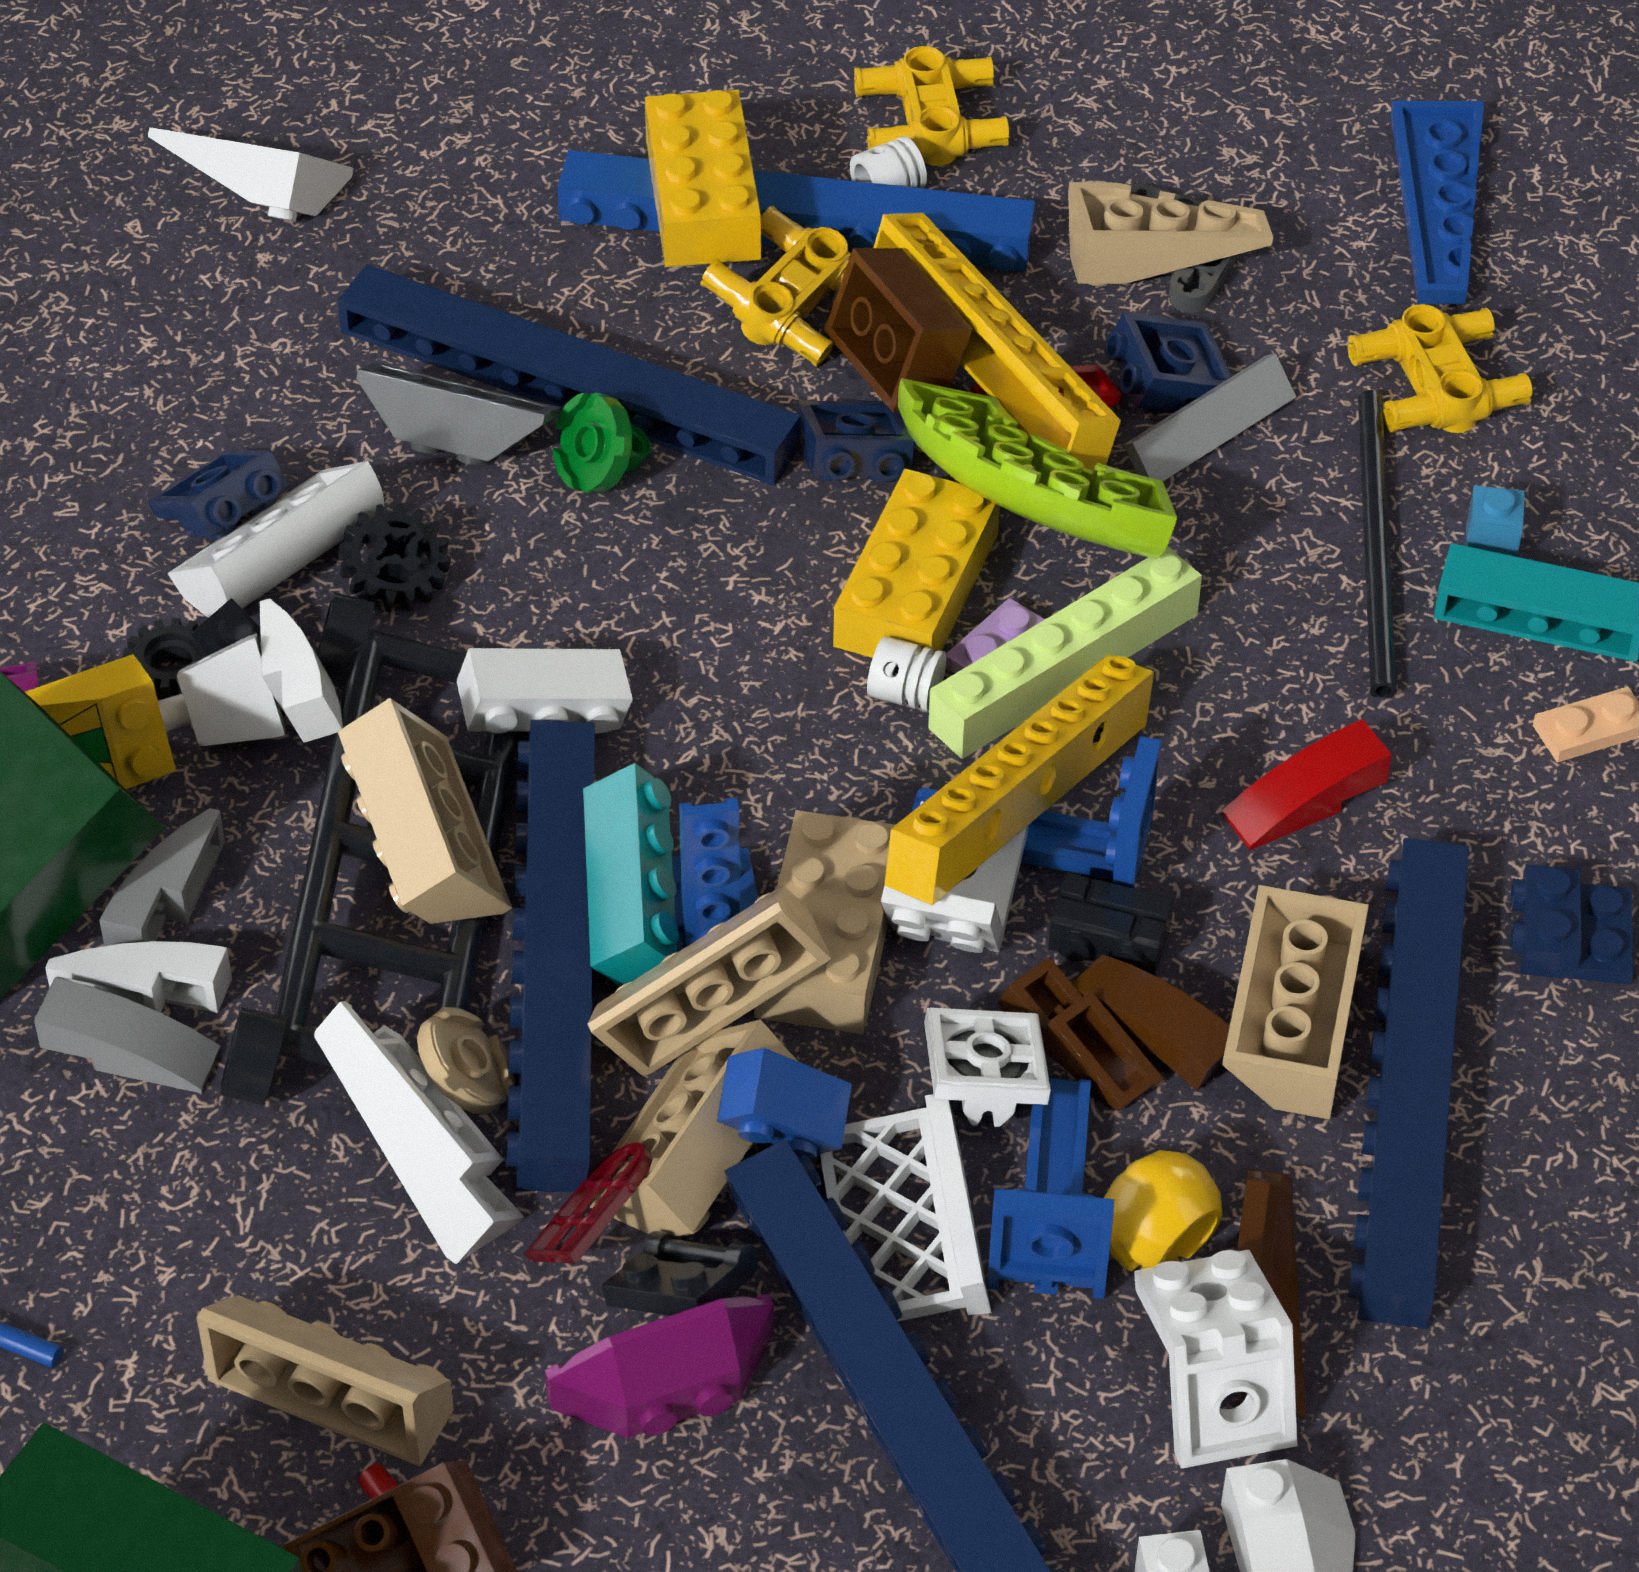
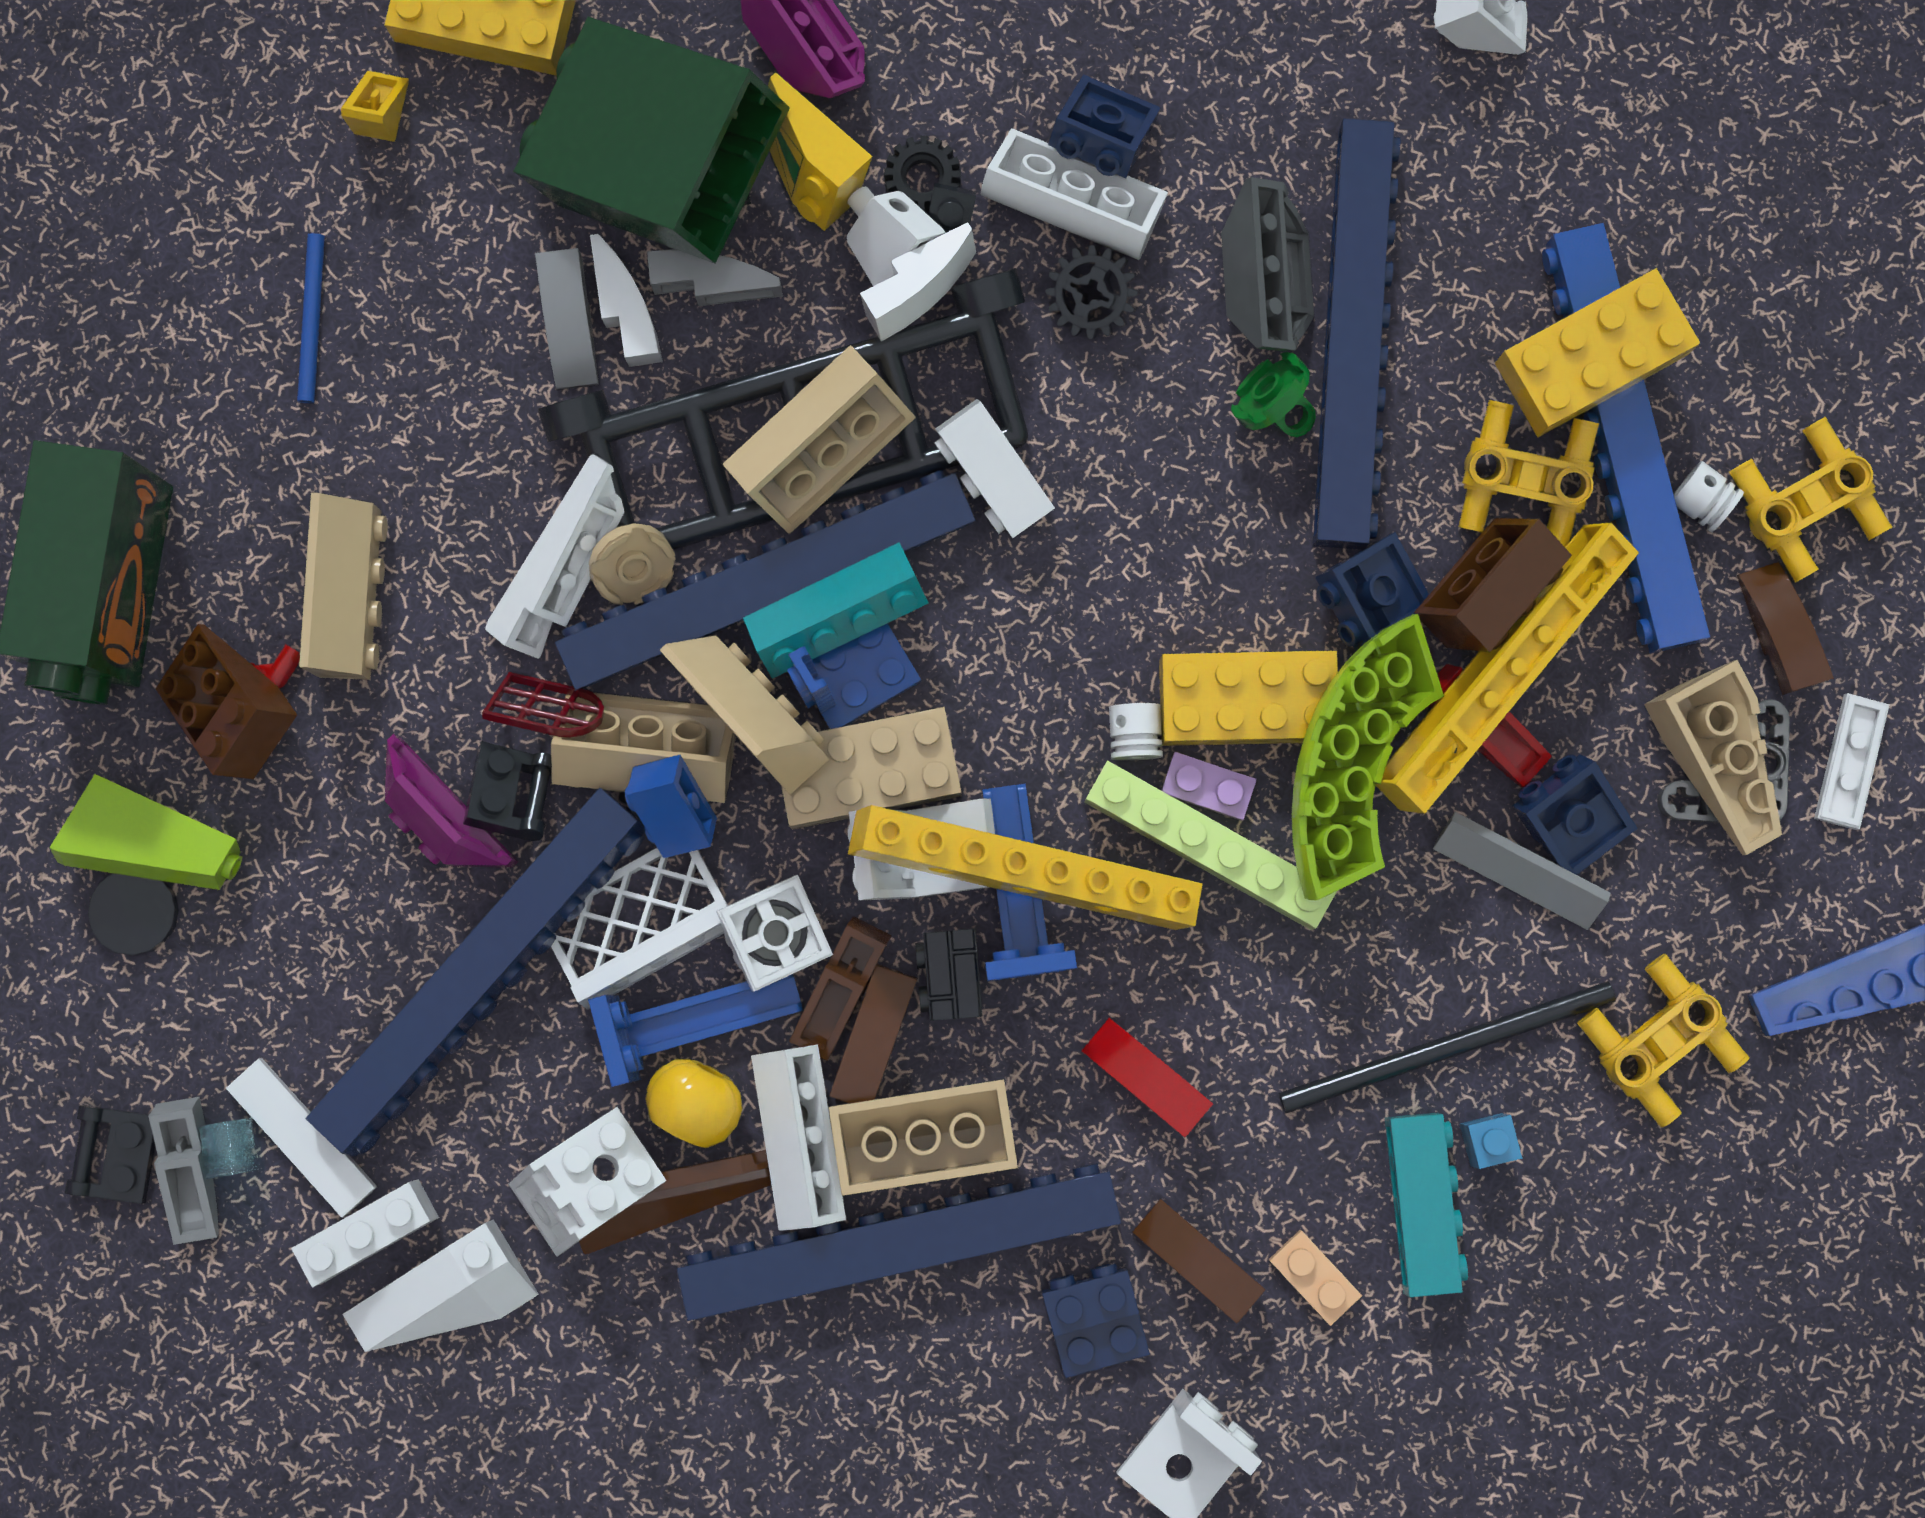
camera: 70 degrees right, 35 degrees up
(1053, 159) = (1784, 629): none -> reddish brown slope
(1210, 163) = (1851, 761): none -> white tile
(1246, 1123) = (798, 1138): none -> white brick
(1540, 805) = (1198, 1261): none -> reddish brown slope

